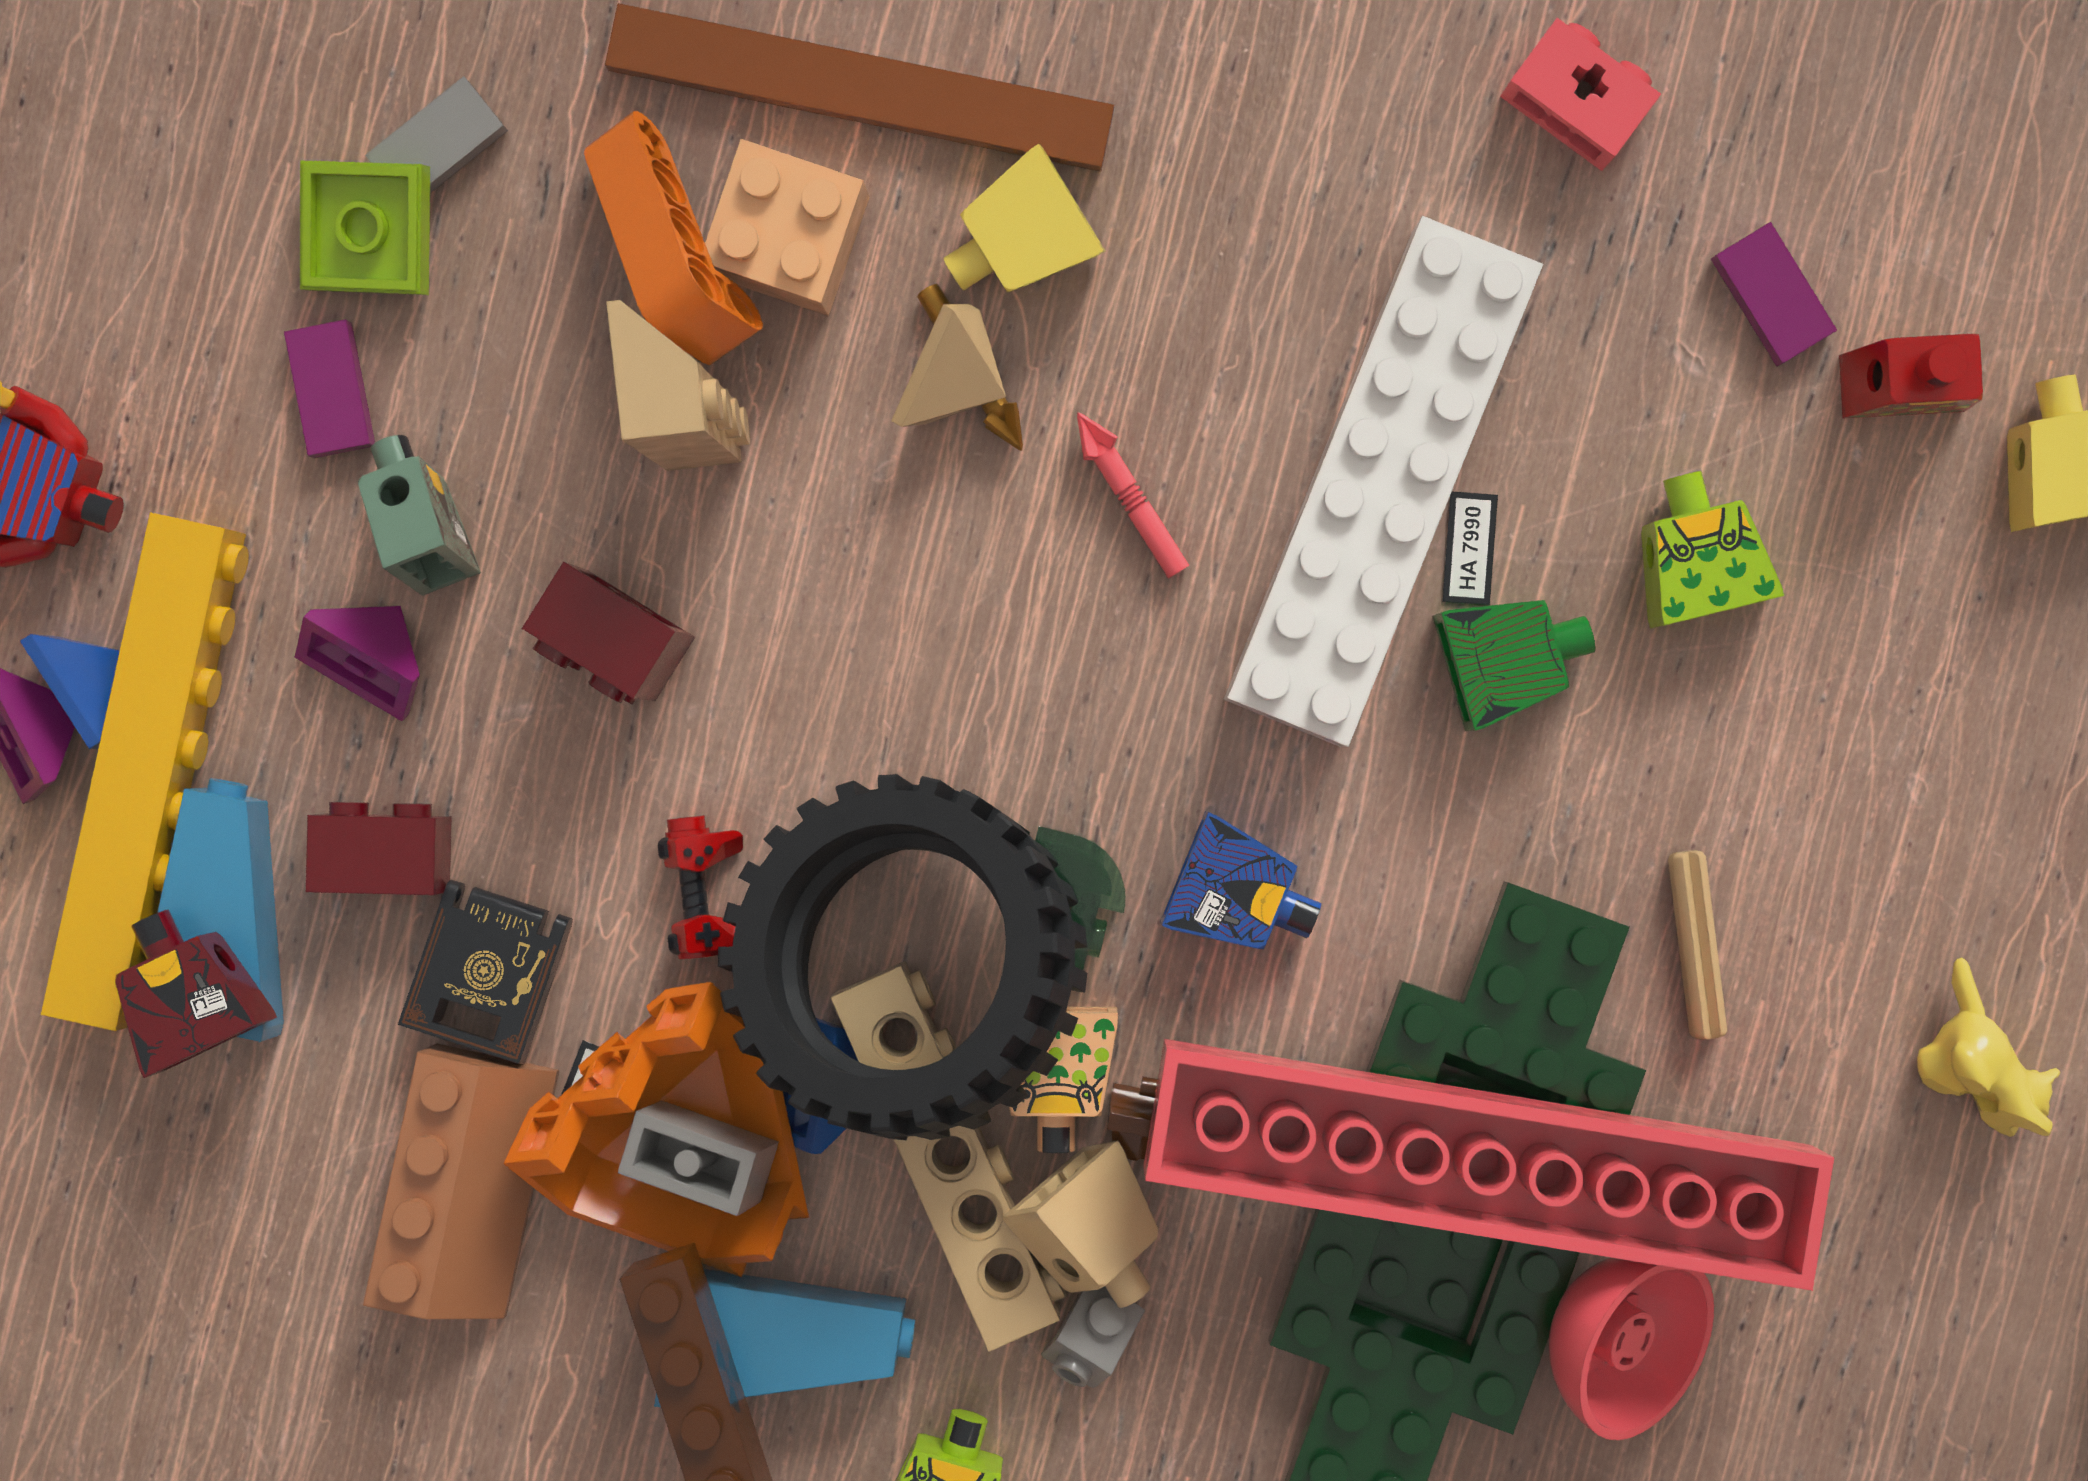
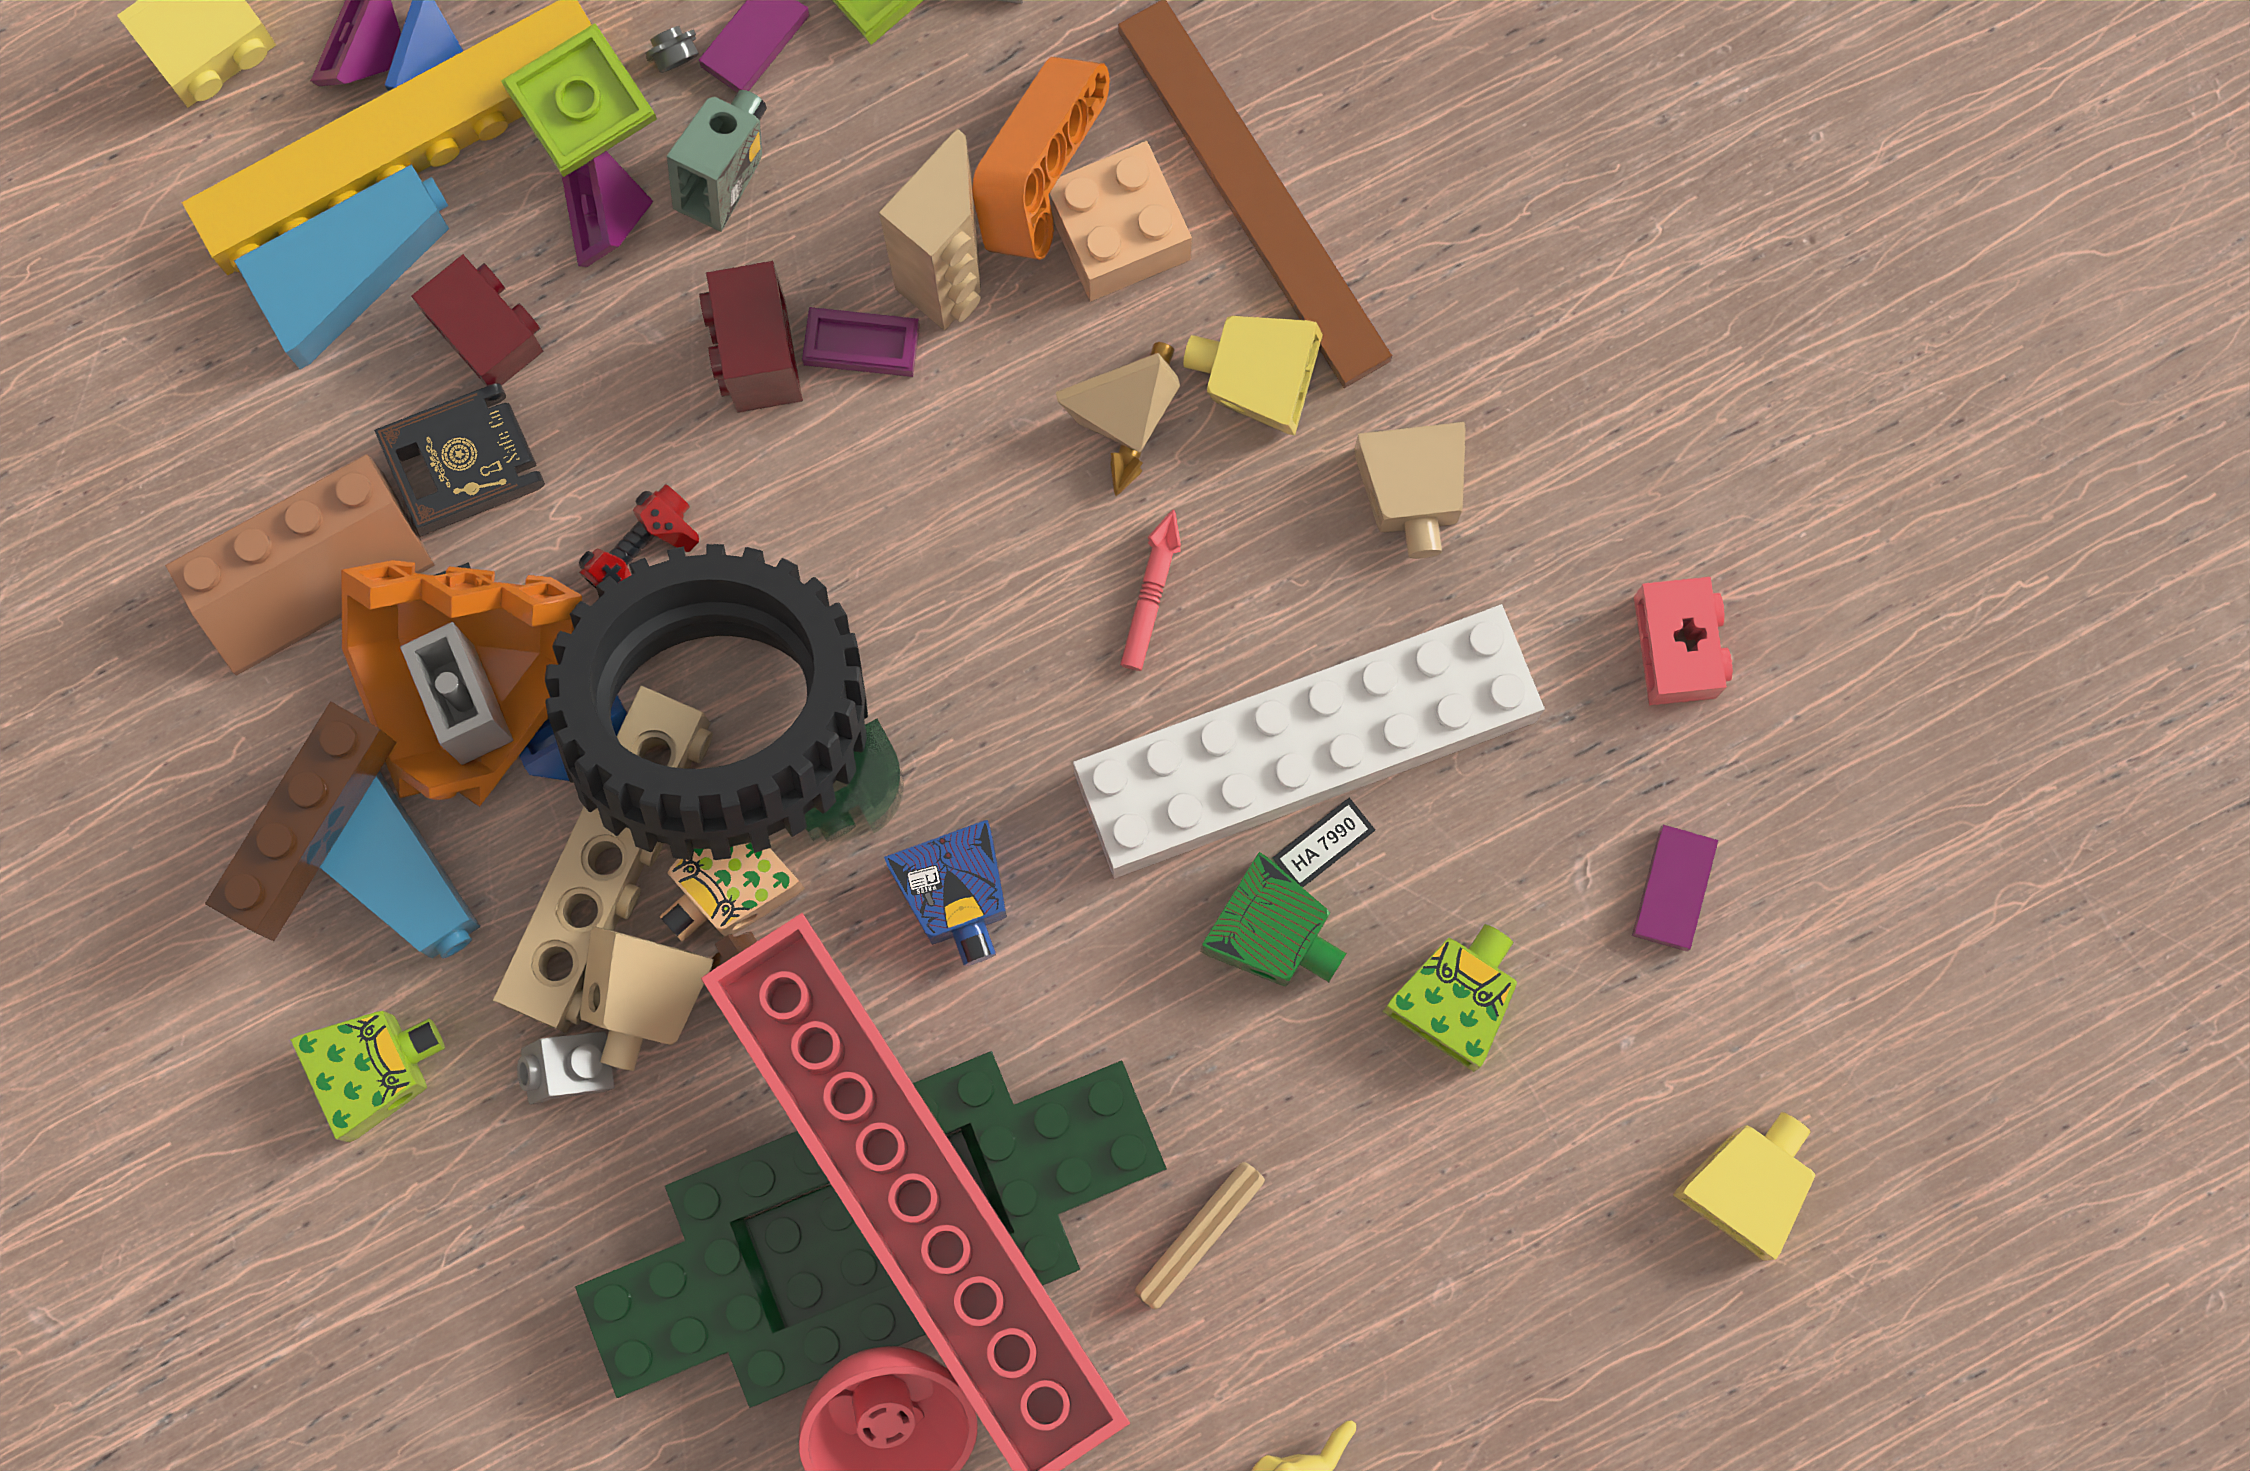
camera: 45 degrees right, 10 degrees down
(185, 995) = (275, 277): dark red torso -> none
(256, 594) = (579, 100): none -> lime tile
(277, 469) = (672, 49): none -> dark grey plate
(688, 542) = (861, 342): none -> magenta tile
(1242, 188) = (1414, 481): none -> tan torso
(1917, 379) = (1706, 1023): red torso -> none

